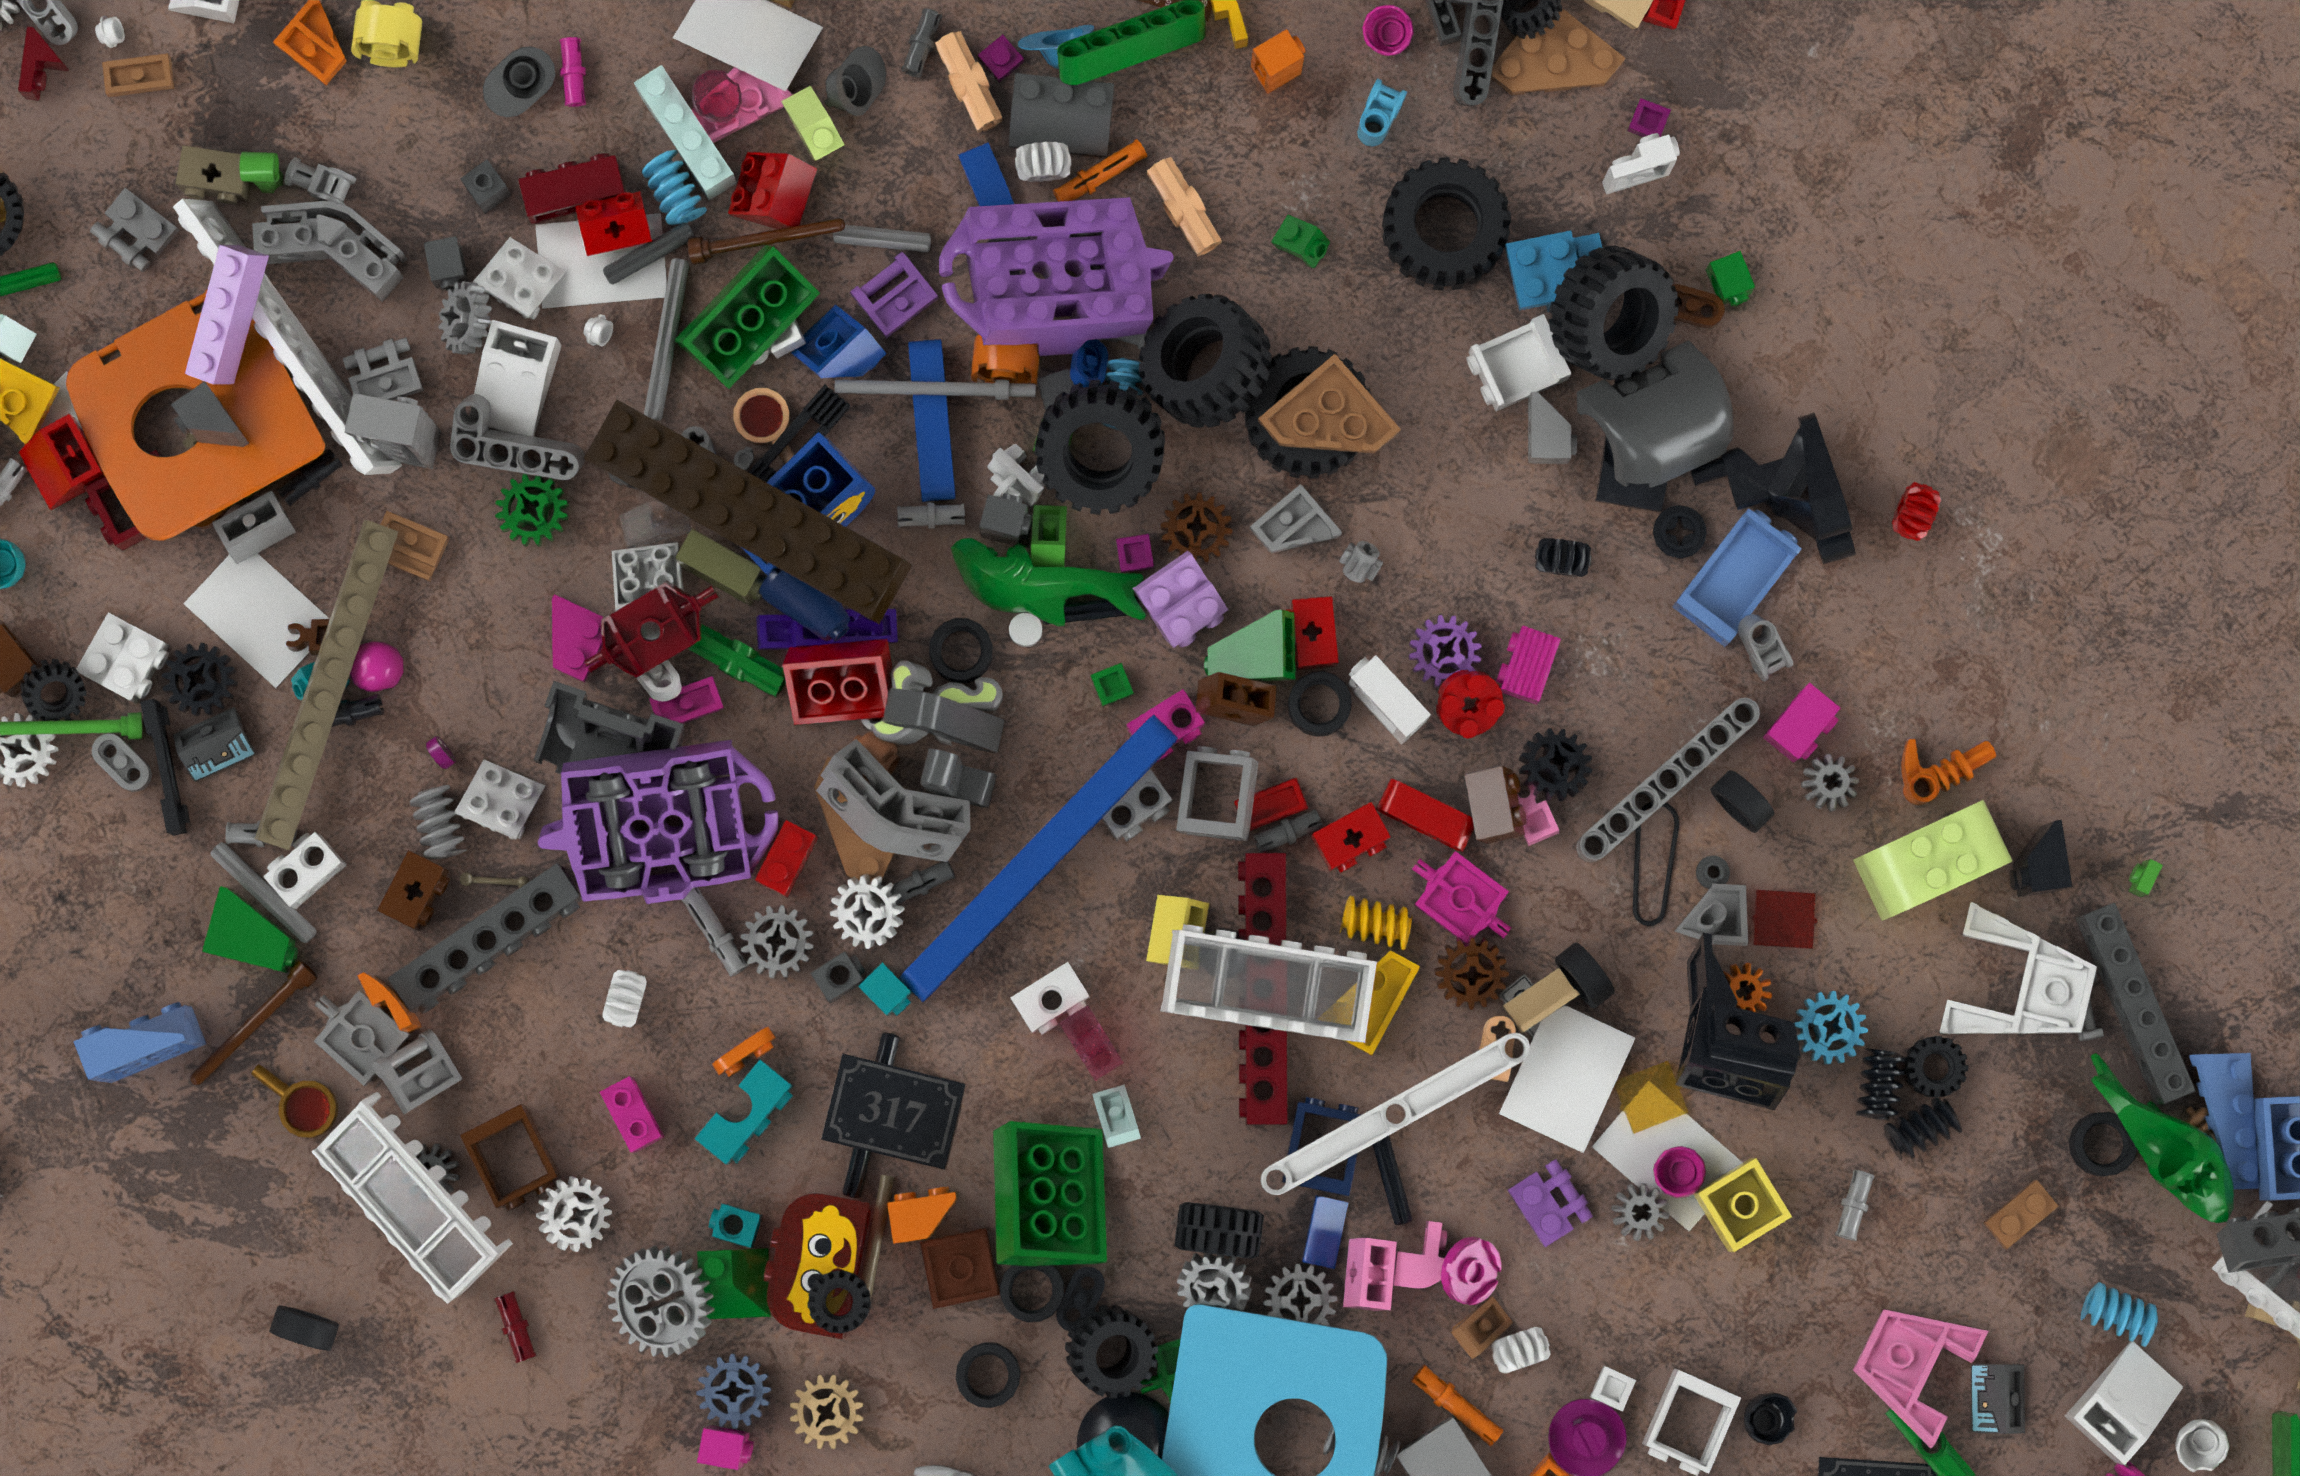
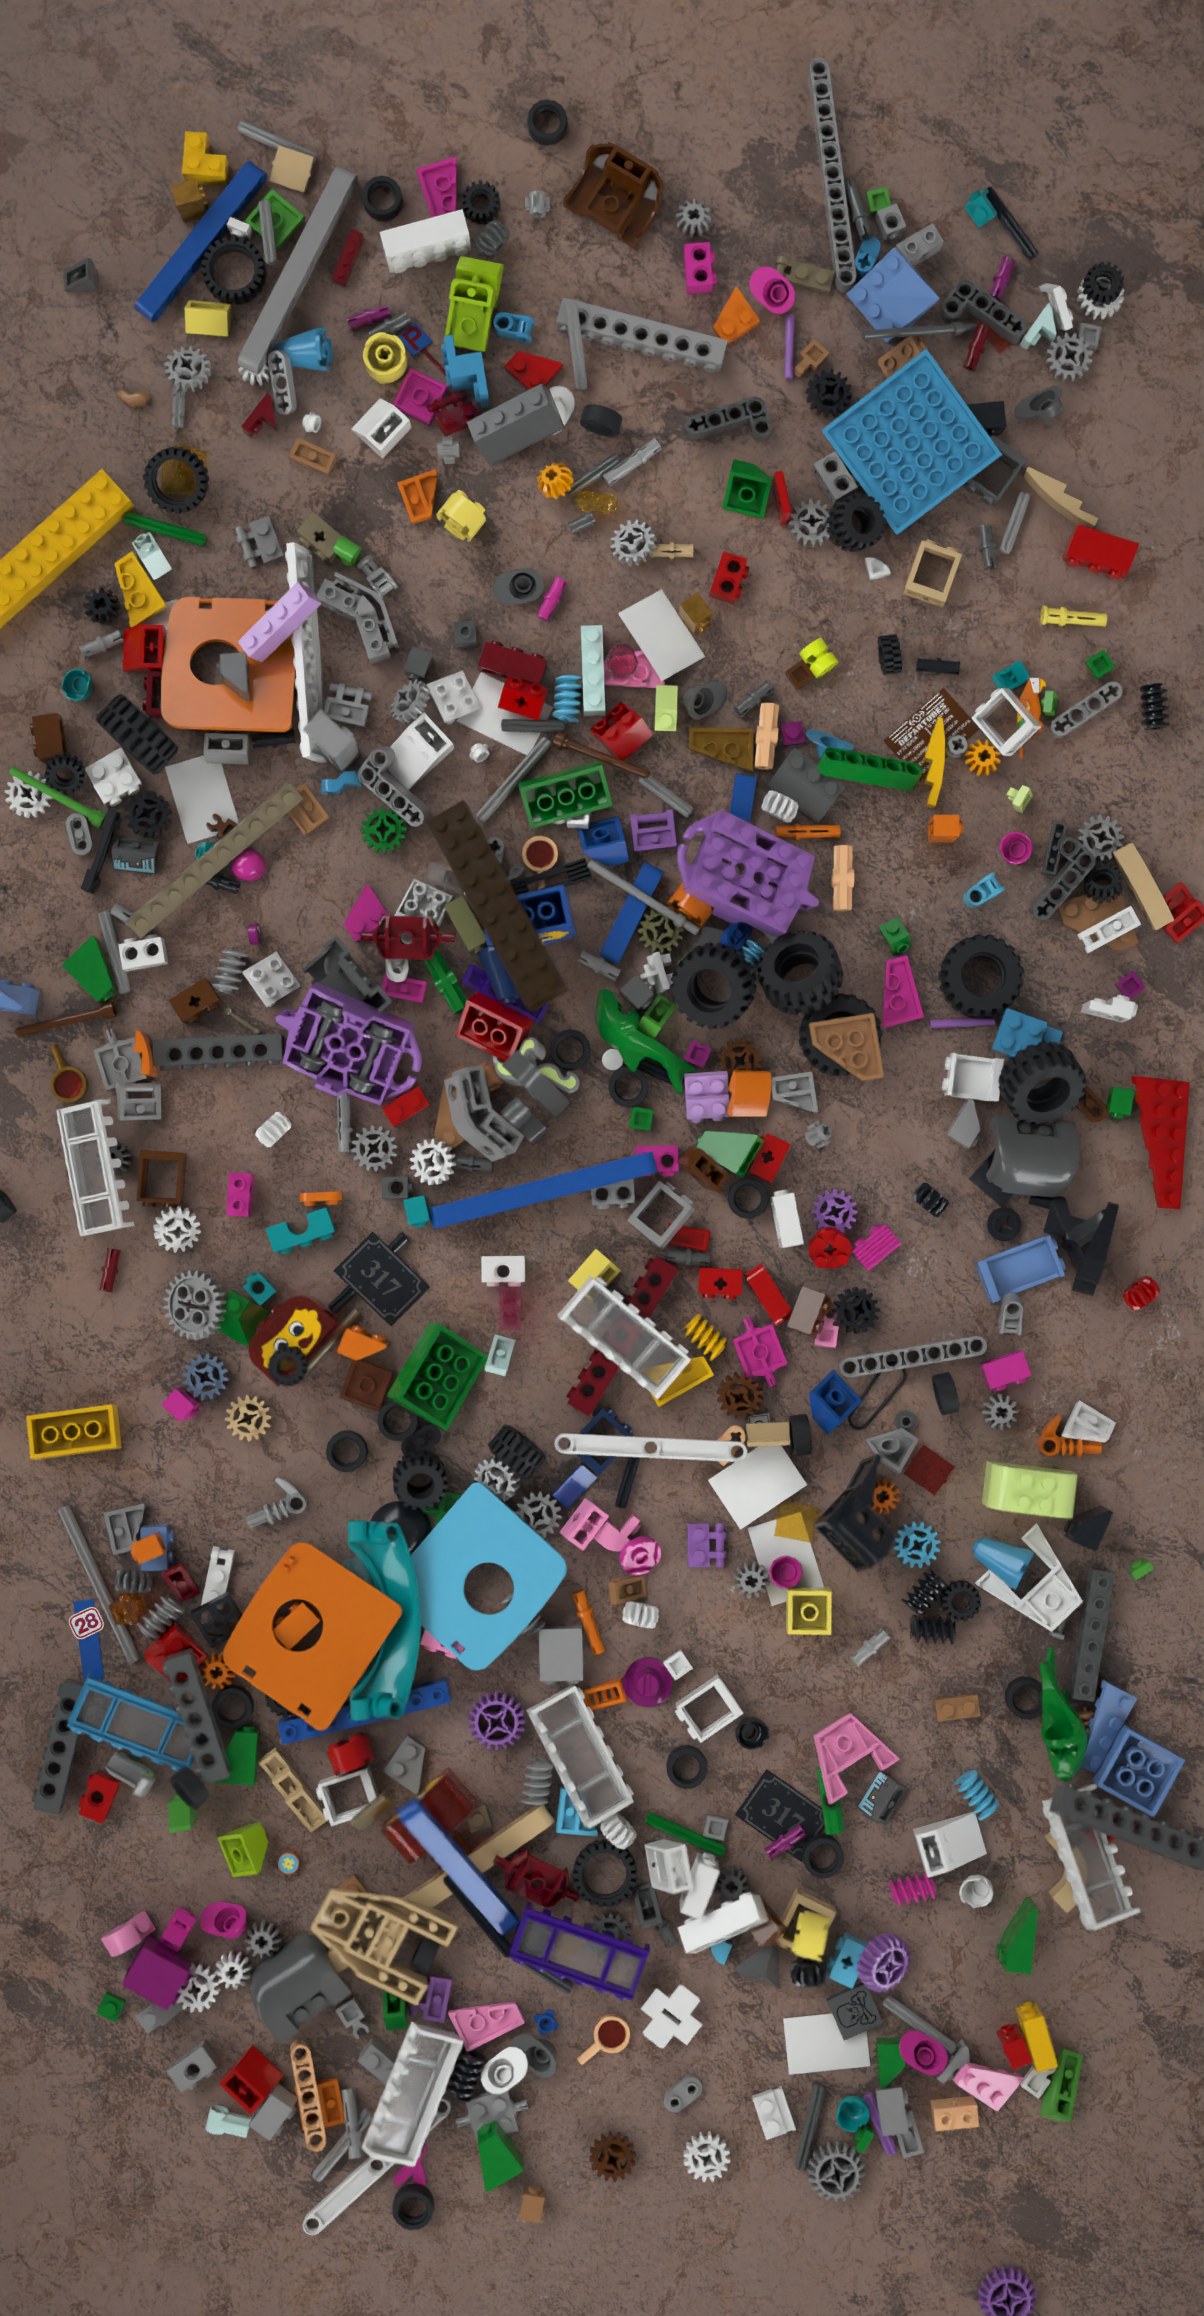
camera: 35 degrees right, 5 degrees up
(121, 577) = (137, 734): none -> black tyre
(432, 490) = (336, 786): none -> dark azure piece
(919, 126) = (724, 744): none -> pearl gold wing
(969, 423) = (650, 926): none -> olive gear
(1077, 676) = (625, 1102): none -> black tyre
(1236, 562) = (749, 1093): none -> orange slope
(1354, 312) = (900, 994): none -> dark pink wing
(1459, 301) = (963, 1022): none -> medium lavender bar
(1576, 61) = (1110, 929): none -> white plate
(1600, 906) = (832, 1402): none -> blue slope
(1812, 281) = (1163, 1127): none -> red wing
(1956, 728) = (1088, 1424): none -> white wing
(1957, 976) = (1003, 1559): none -> dark azure cone

